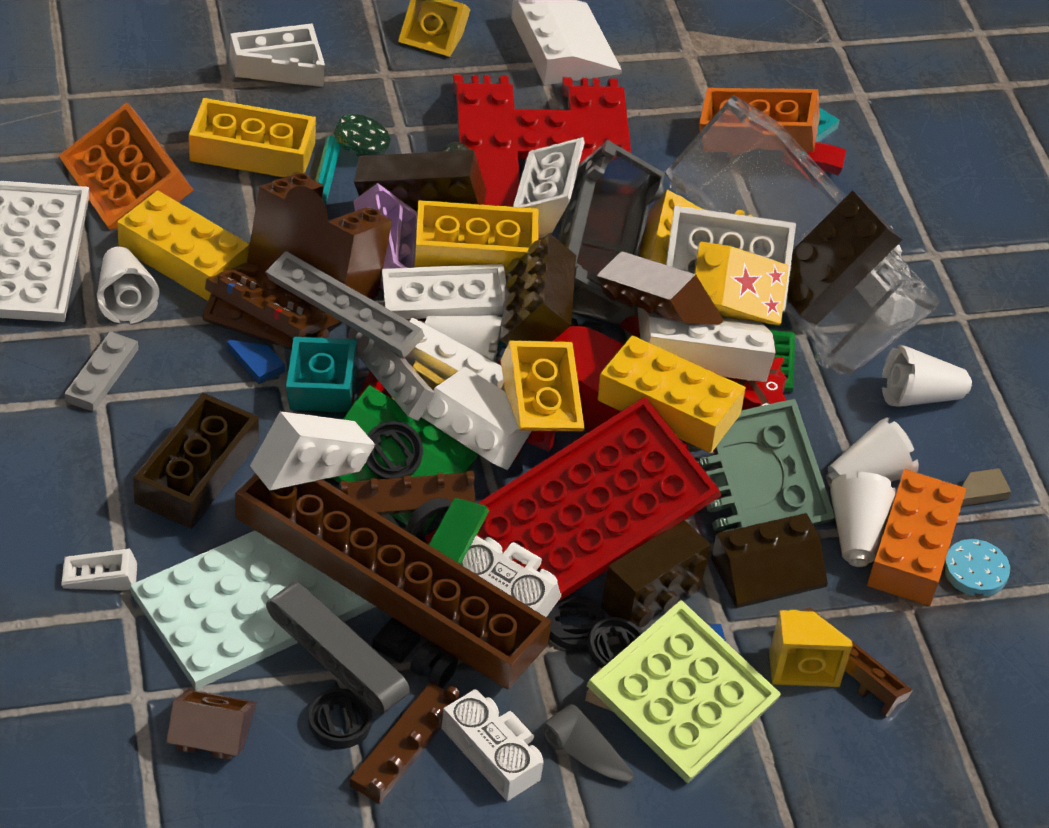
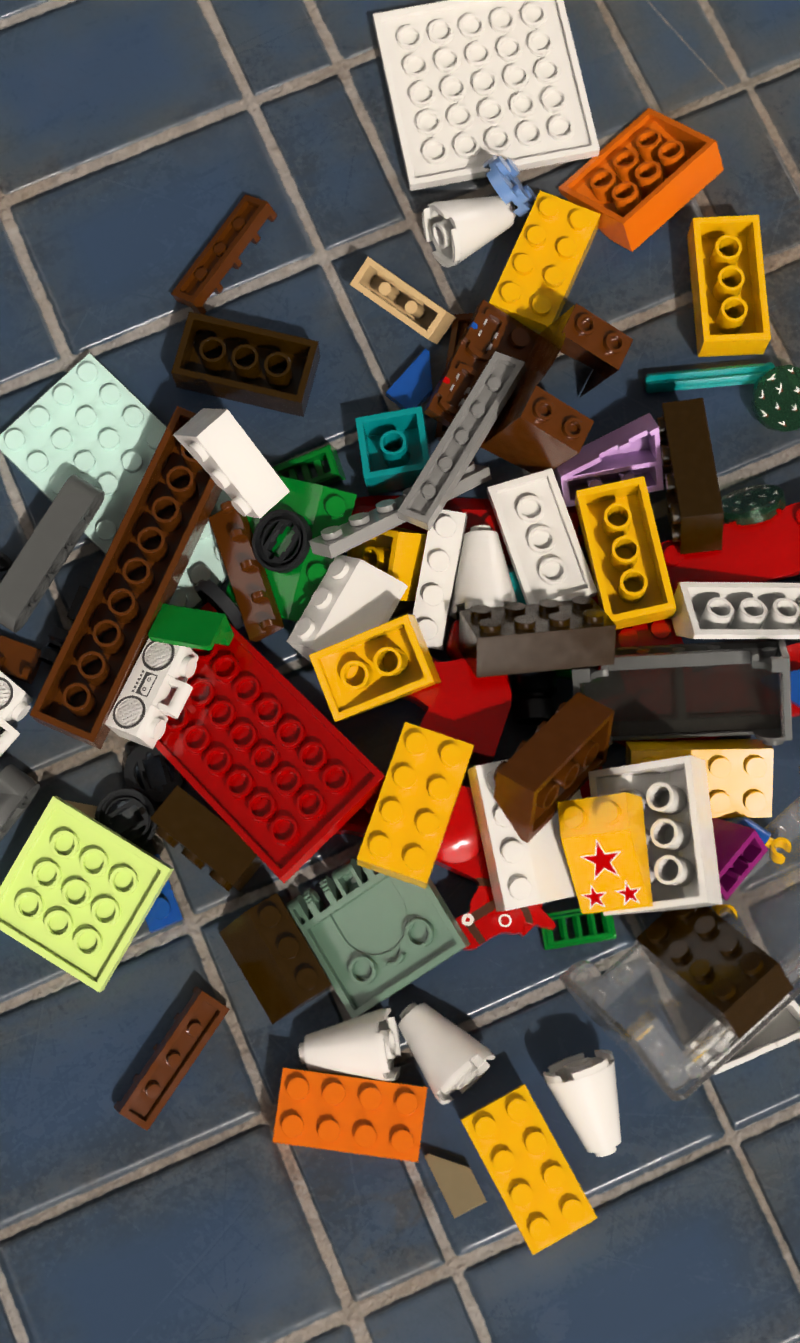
camera: 85 degrees right, 30 degrees up
(69, 463) = (223, 253): none -> reddish brown hinge
(96, 241) = (507, 185): none -> medium blue plate
(101, 371) = (353, 245): light grey plate -> none
(101, 580) = (107, 342): white slope -> none
(179, 338) = (402, 300): none -> tan brick
(807, 651) = (150, 1007): yellow slope -> none
(975, 432) = (528, 1169): none -> yellow brick
(976, 567) = (336, 1187): medium azure tile -> none

